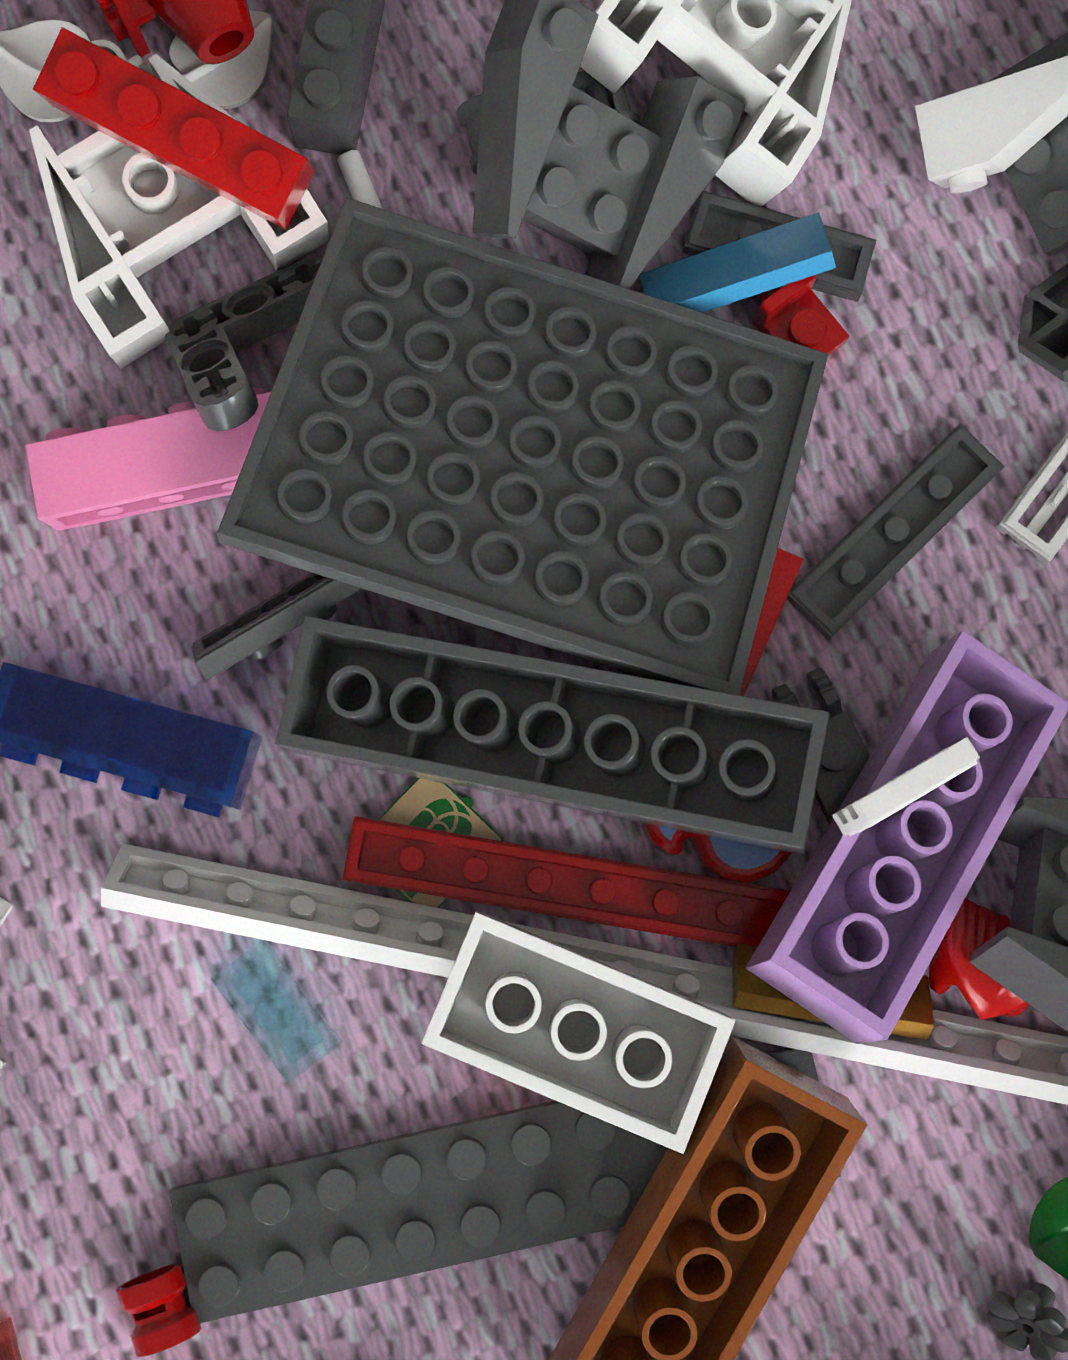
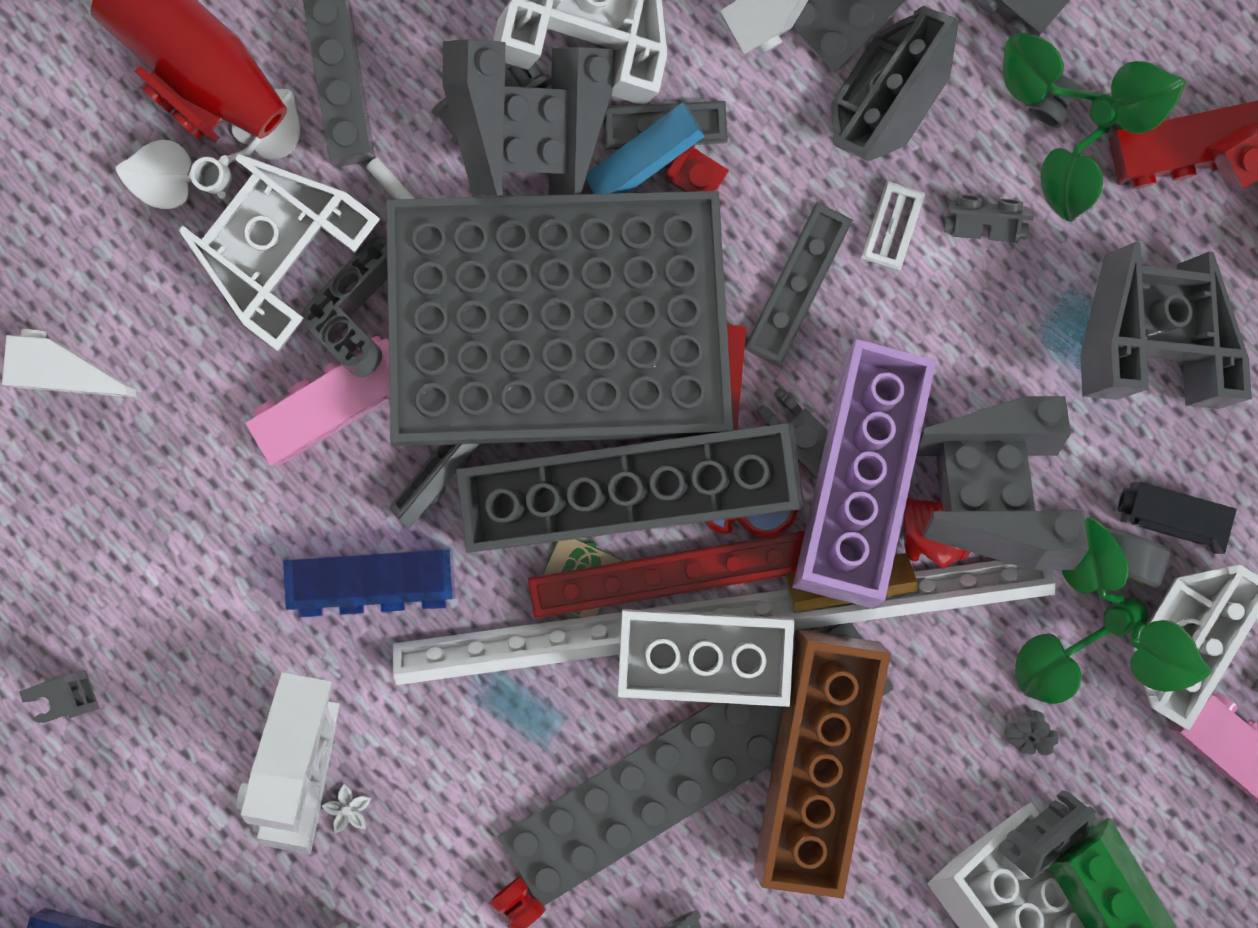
camera: 10 degrees left, 5 degrees up
(173, 128) = (271, 202): red brick -> none
(906, 788) = (848, 451): white tile -> none

